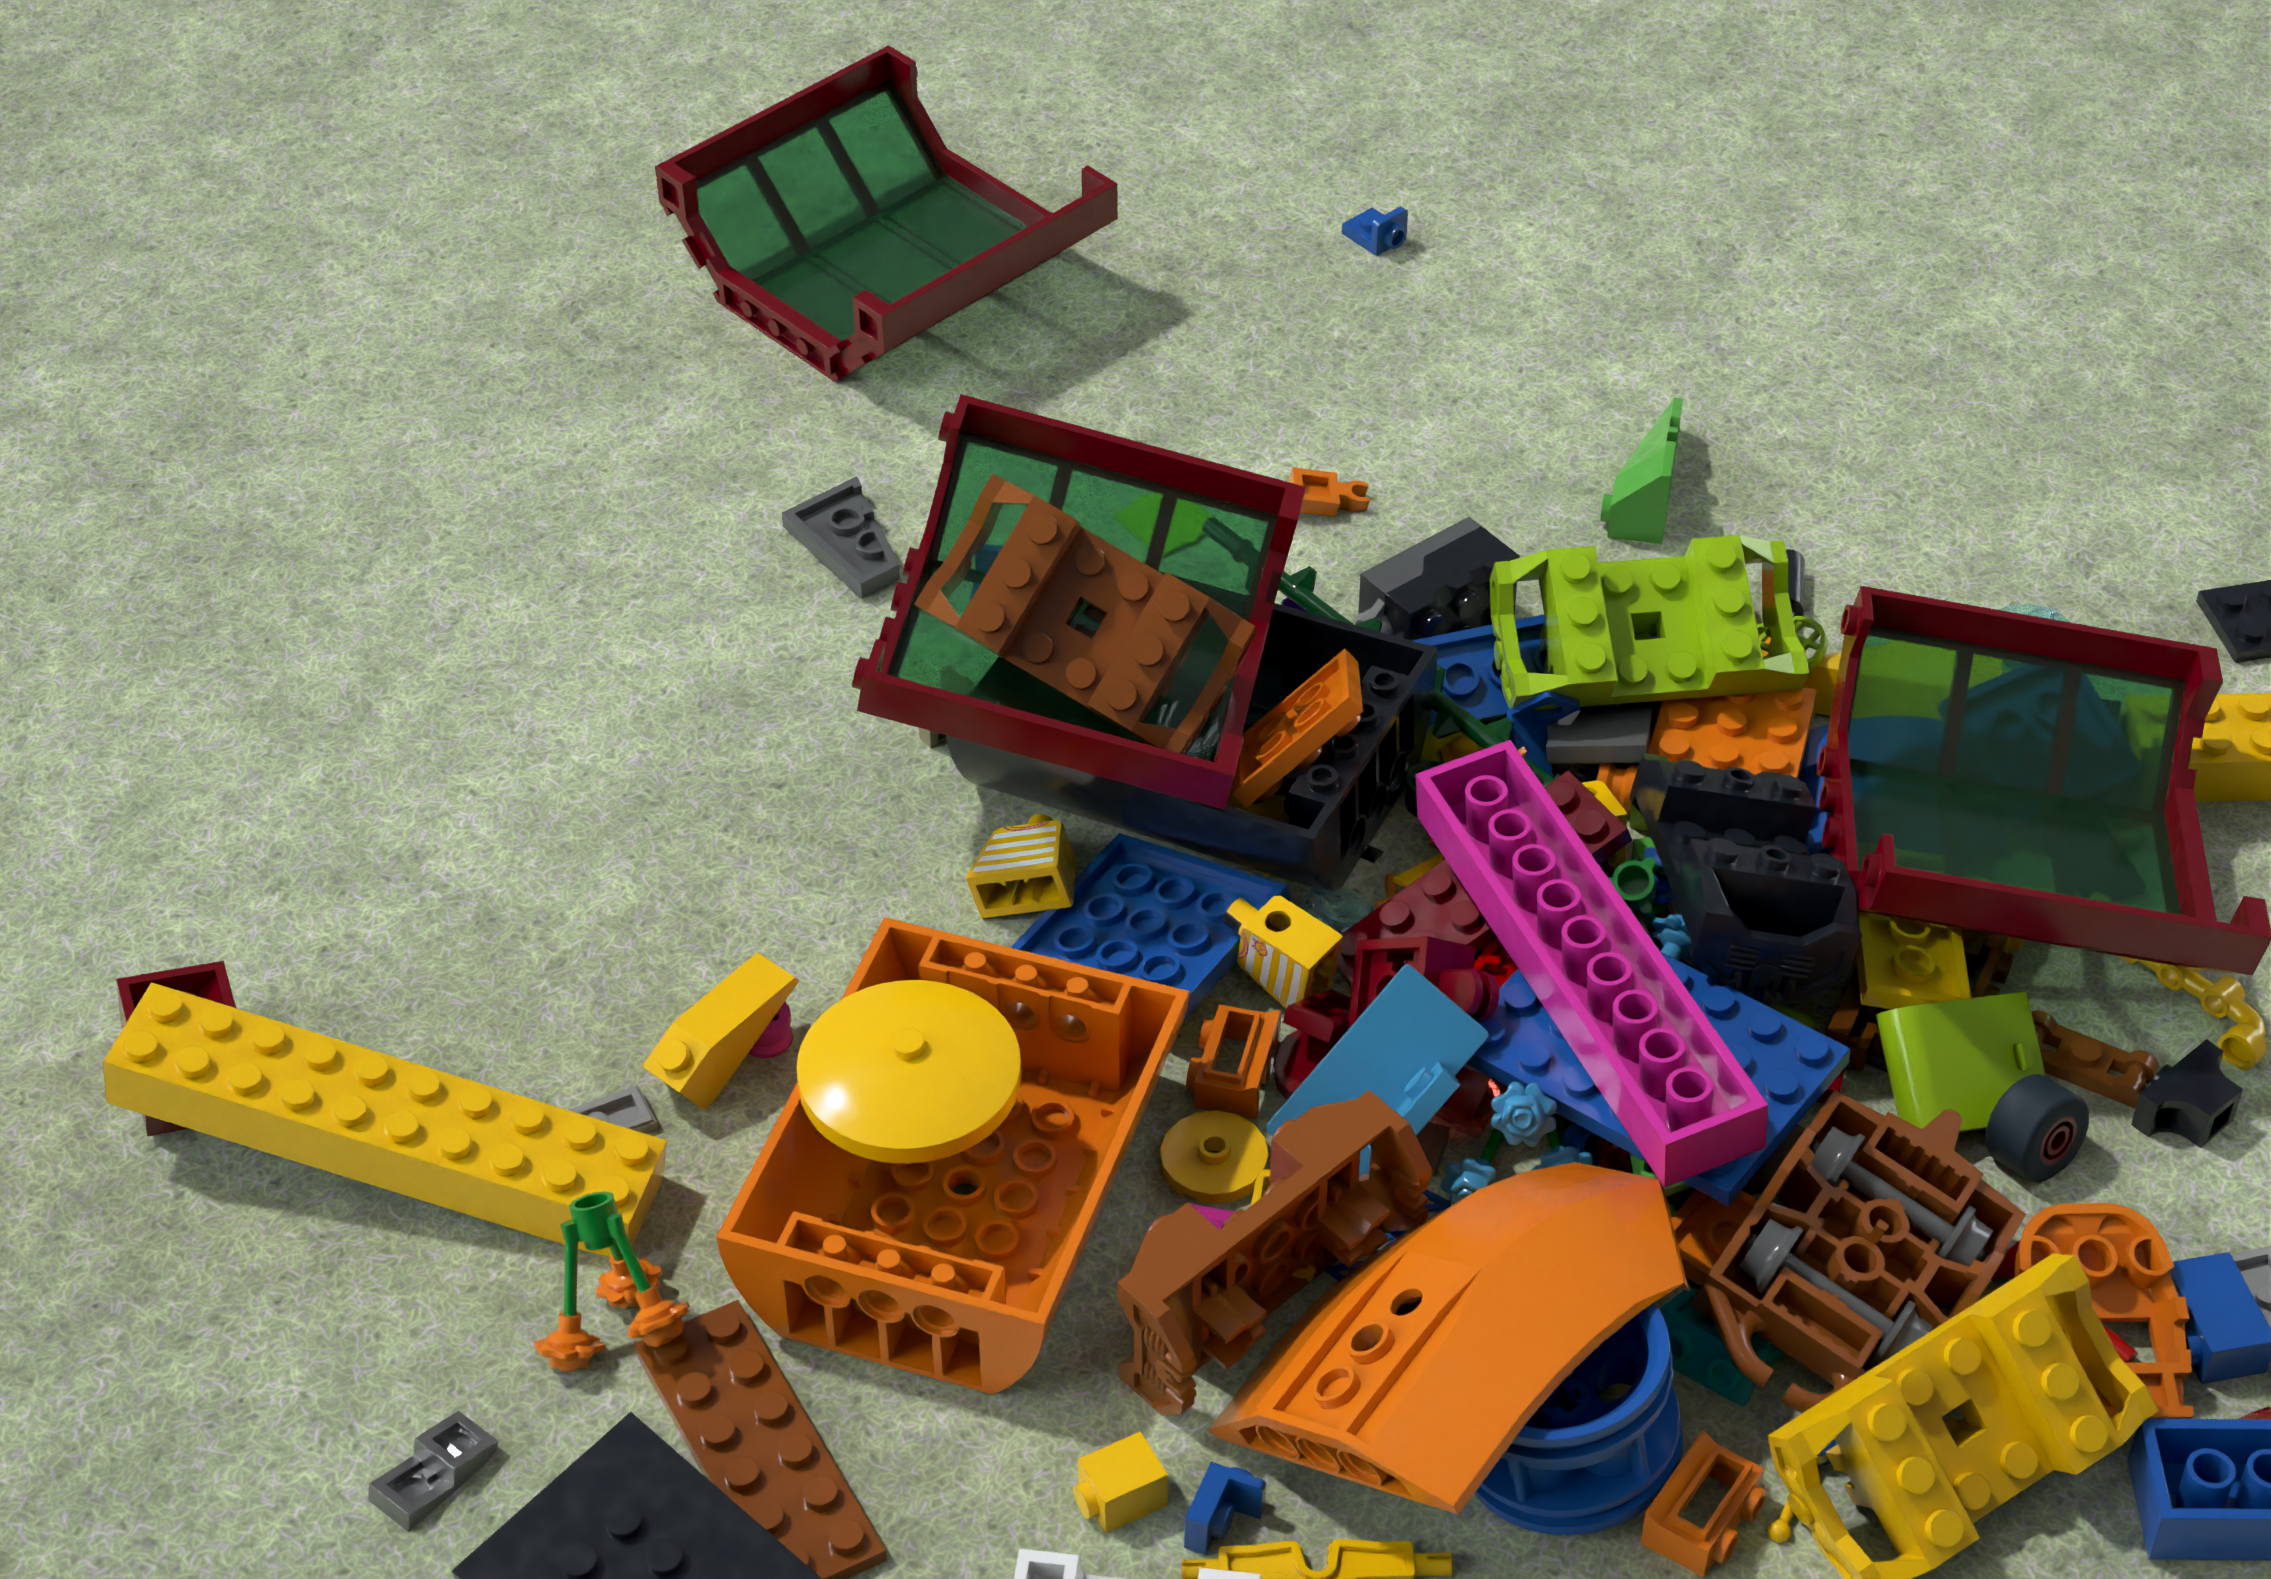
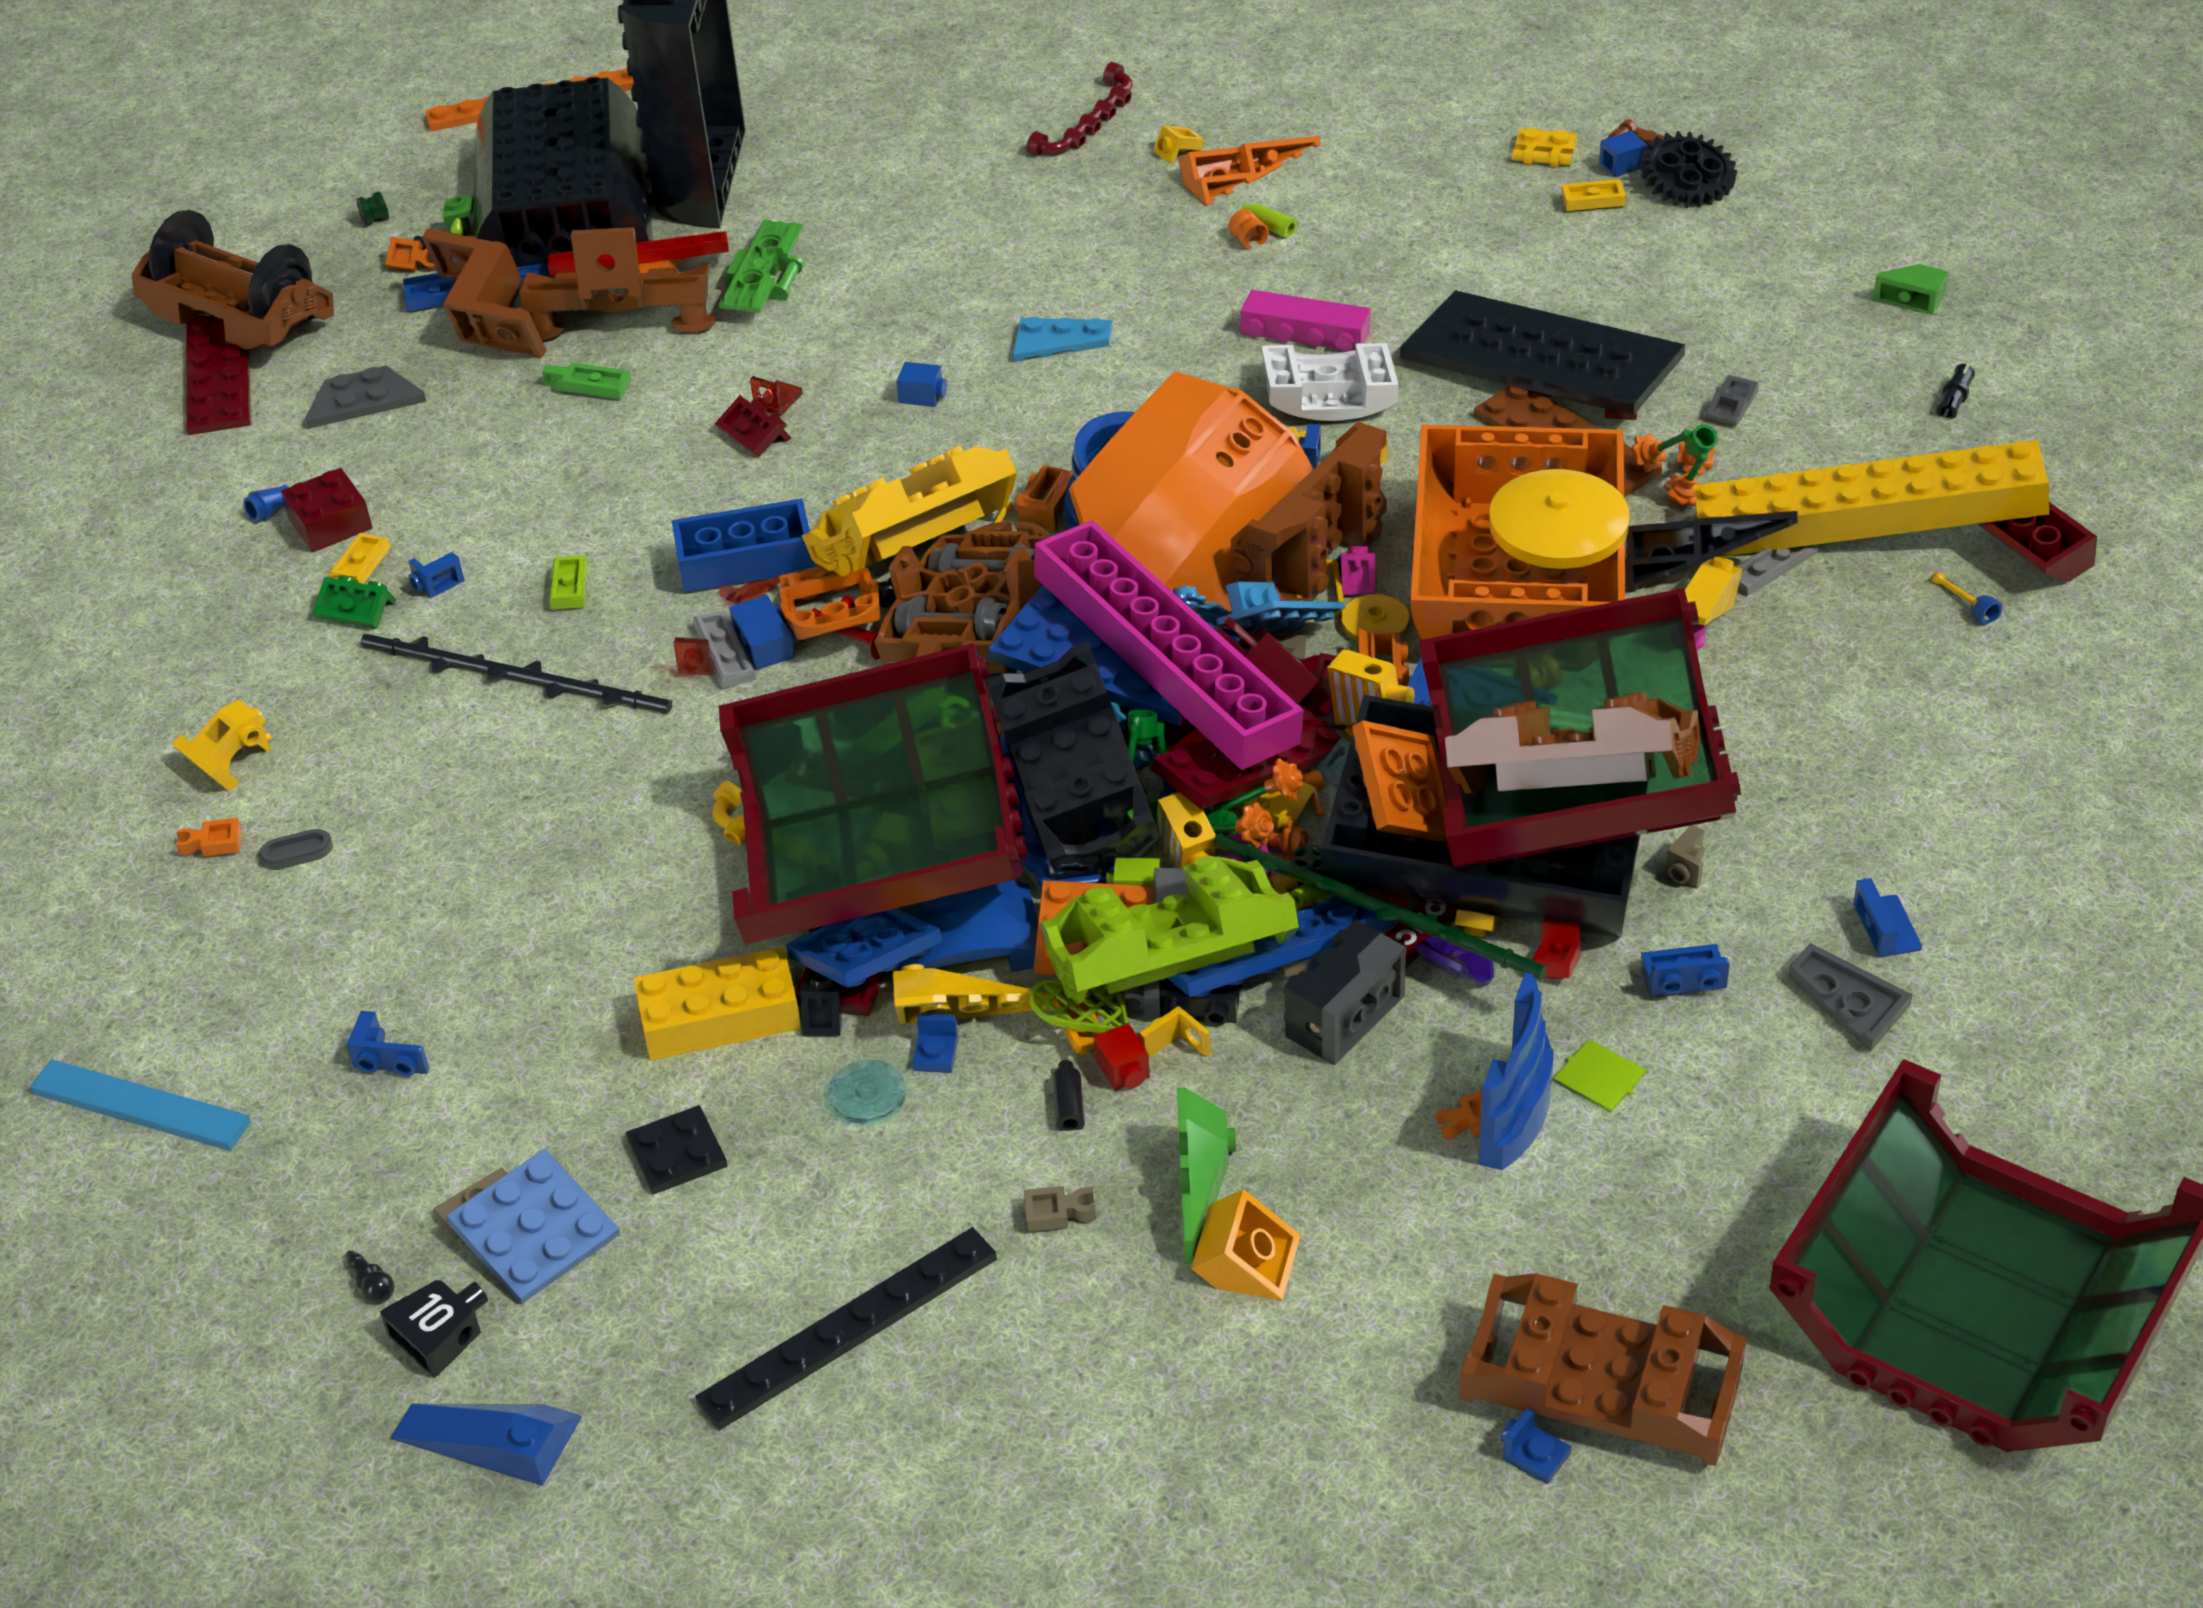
camera: 170 degrees right, 0 degrees up
(58, 1393) = (1955, 391): none -> black pin
(330, 978) = (1980, 606): none -> blue hinge
(685, 1118) = (1671, 547): none -> black wedge
(752, 607) = (1885, 921): none -> blue panel
(1261, 225) = (1603, 1366): none -> dark orange piece
(1291, 420) = (1517, 1090): none -> blue slope
(1617, 406) = (1245, 1248): none -> light orange slope
(1818, 483) = (1051, 1208): none -> dark tan plate
(2046, 427) = (845, 1328): none -> black plate

